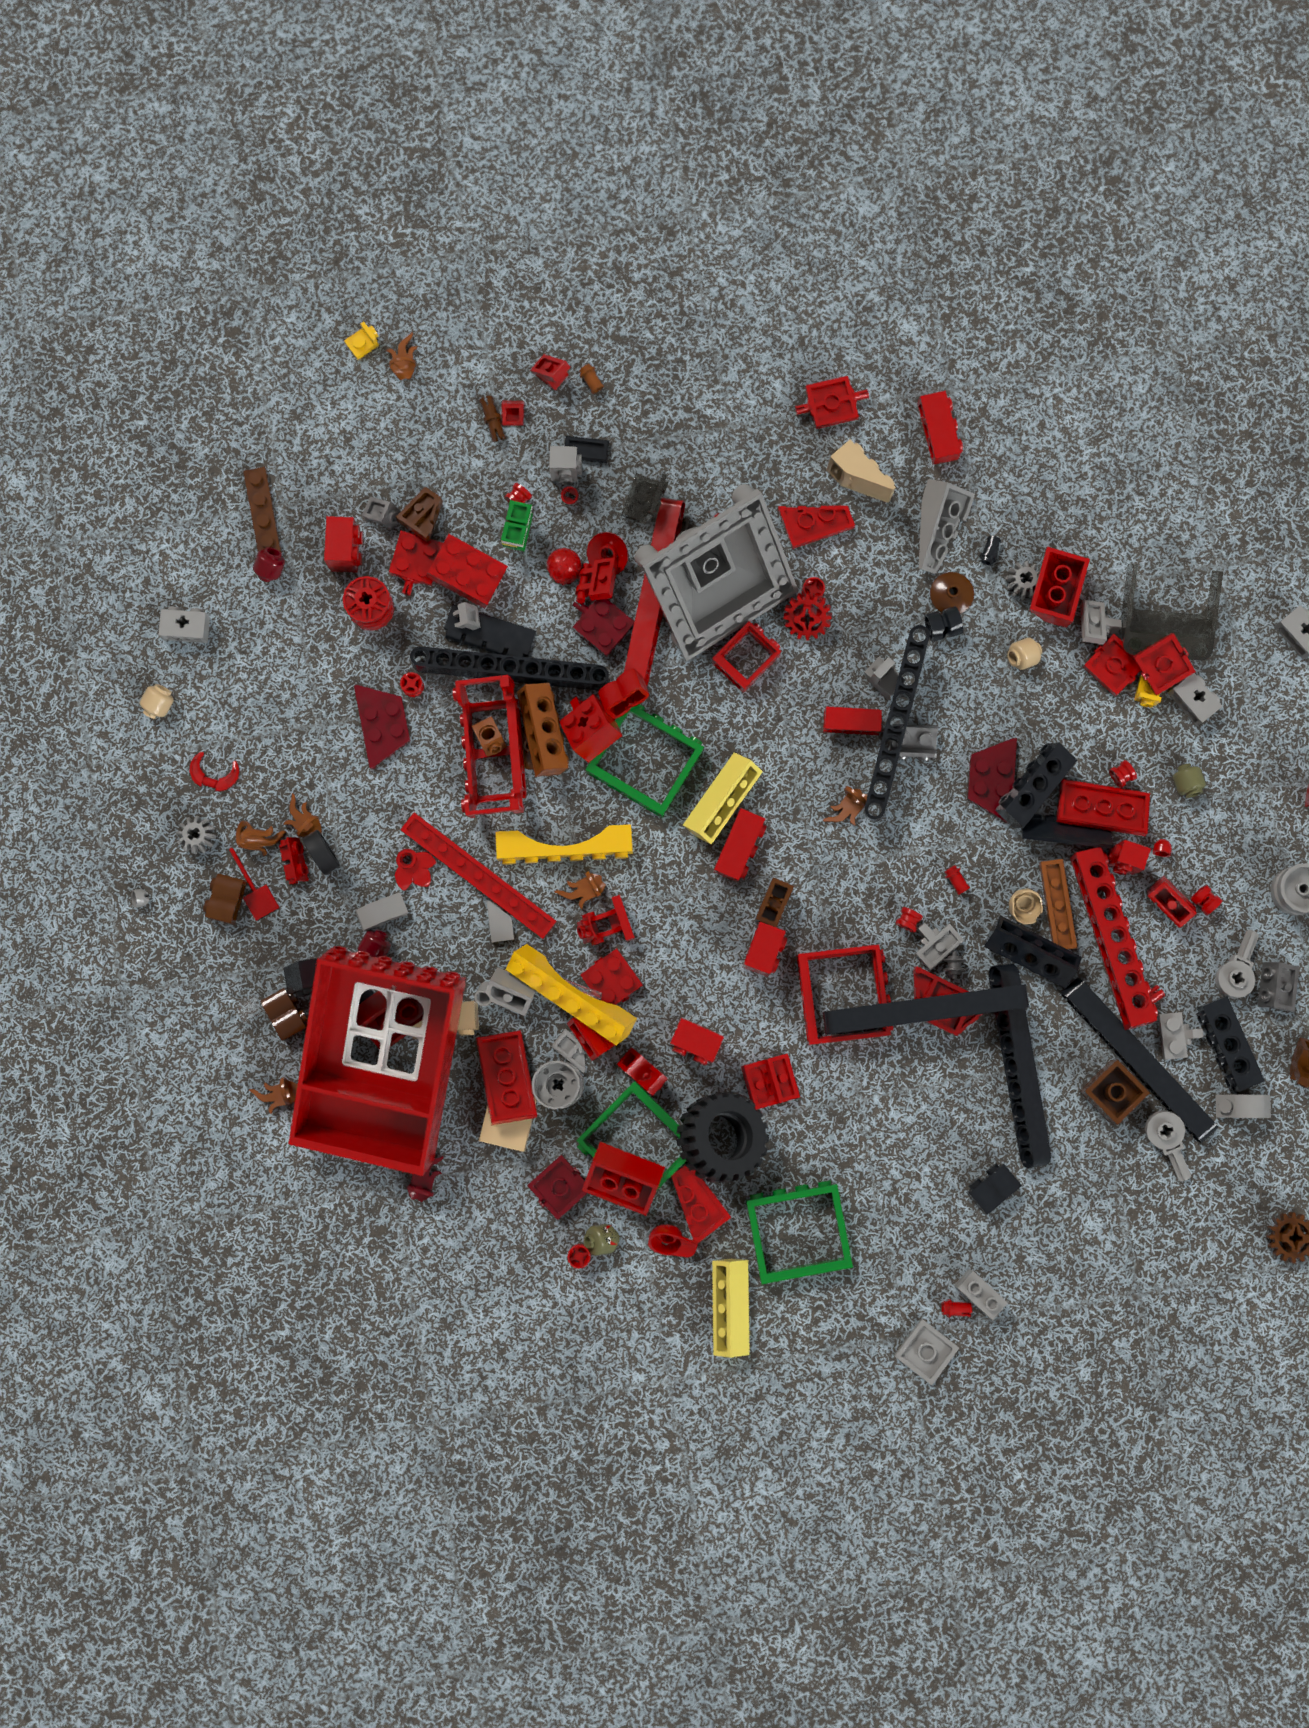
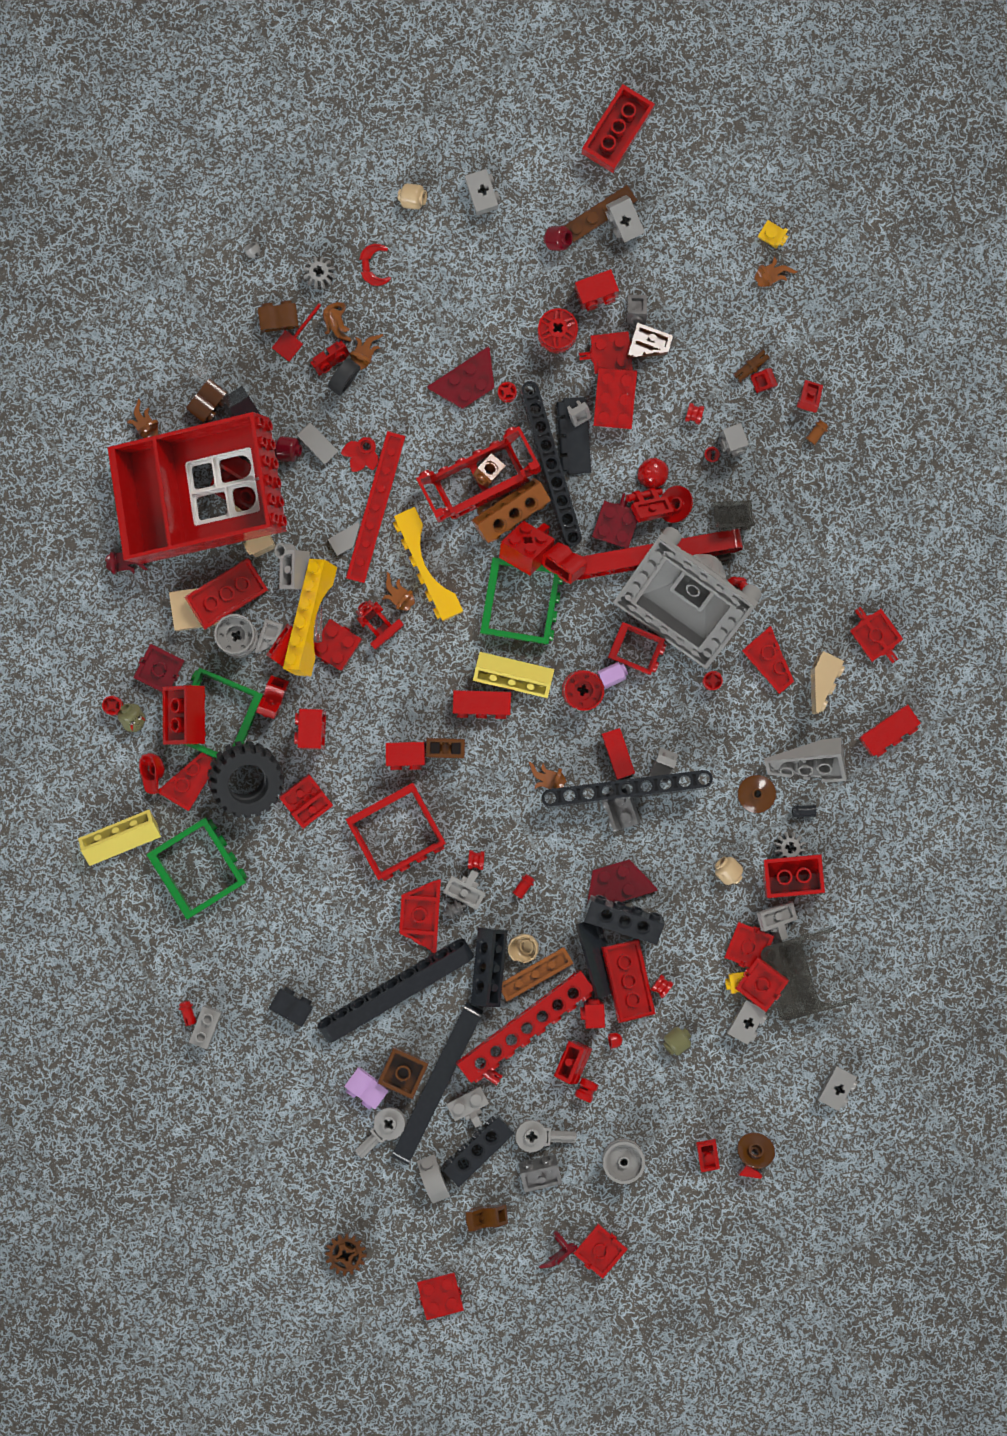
camera: 70 degrees right, 5 degrees up
(179, 454) = (618, 128): none -> red brick
(287, 479) = (632, 225): none -> light grey brick
(517, 526) = (667, 423): green hips -> none
(591, 449) = (757, 452): black tile -> none
(765, 692) = (612, 674): none -> lavender brick
(777, 719) = (587, 700): none -> red wheel
(798, 616) = (683, 678): red gear -> none
(925, 1009) = (407, 899): black beam -> none
(926, 1351) = (146, 1002): light grey tile -> none
(944, 623) = (726, 796): black wheel -> none
(1115, 1141) = (366, 1088): none -> lavender brick

